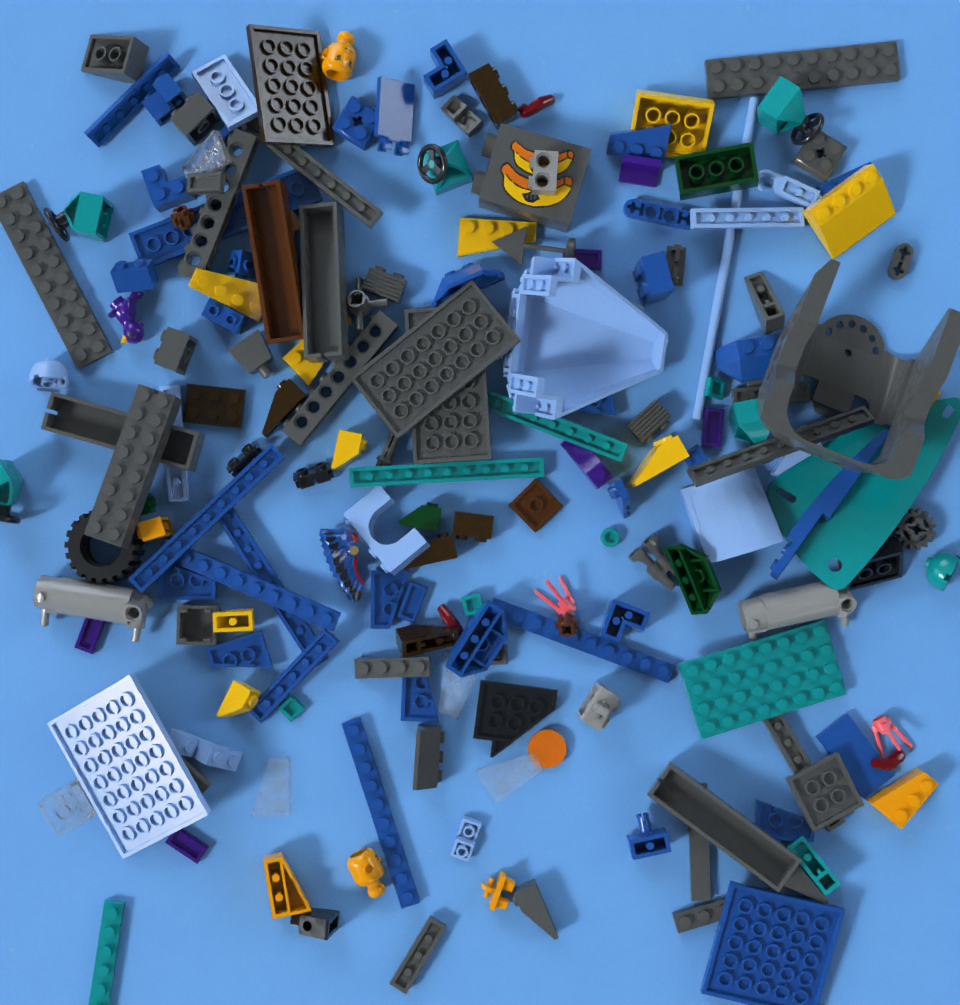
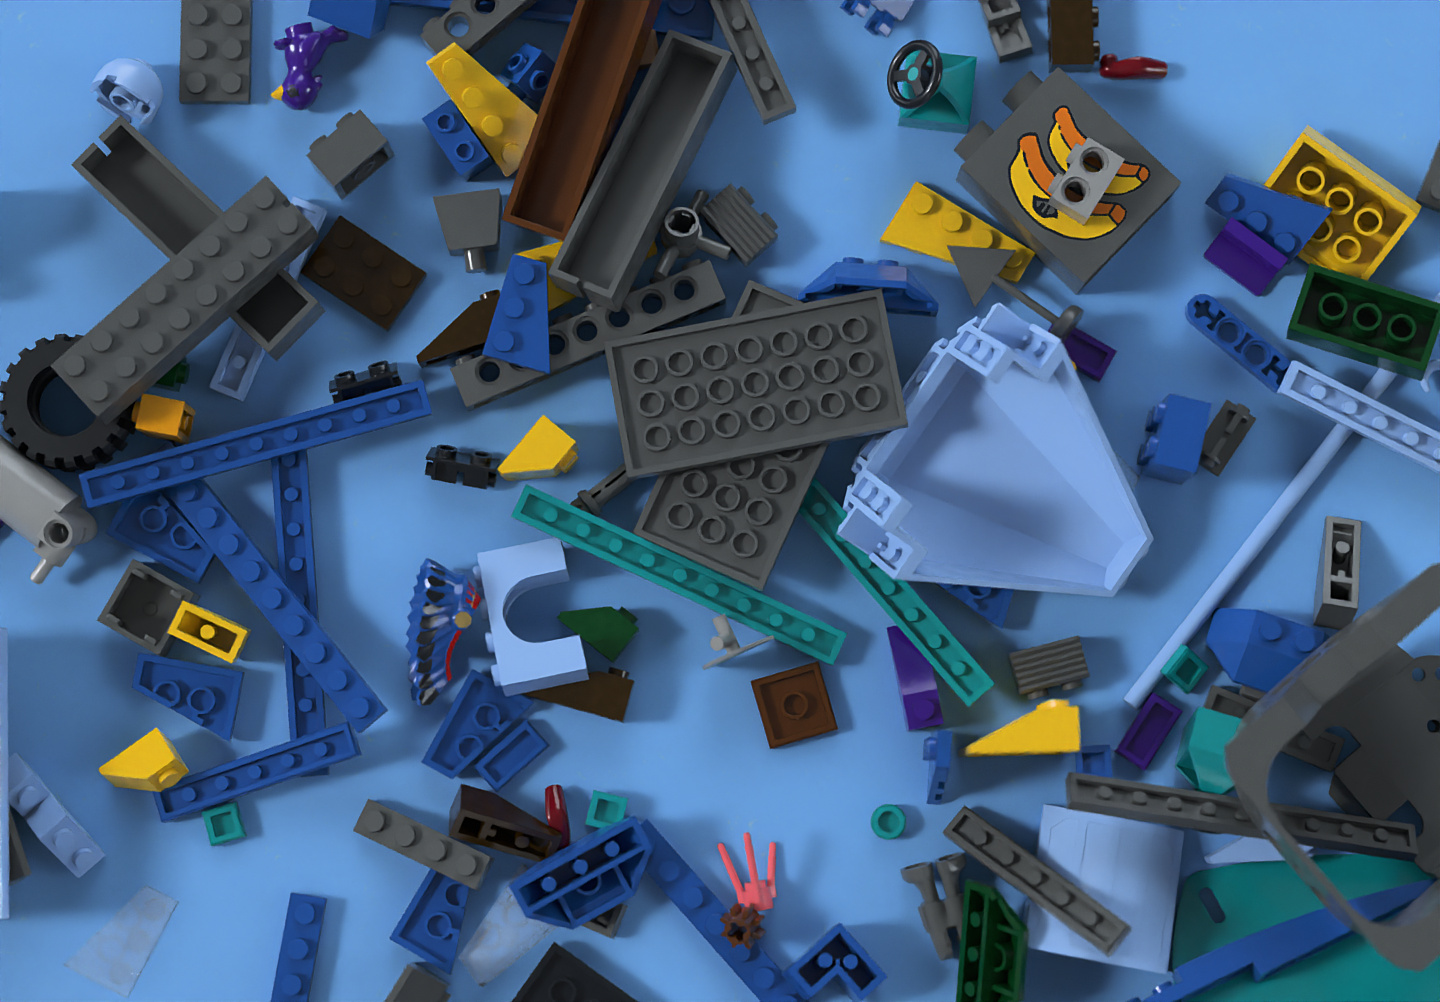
camera: 30 degrees right, 5 degrees down
(302, 386) = (521, 317): none -> blue wing
(473, 526) = (675, 684): dark brown brick -> none
(487, 491) = (727, 640): none -> light grey shield
(698, 529) = (1037, 881): none -> dark grey tile

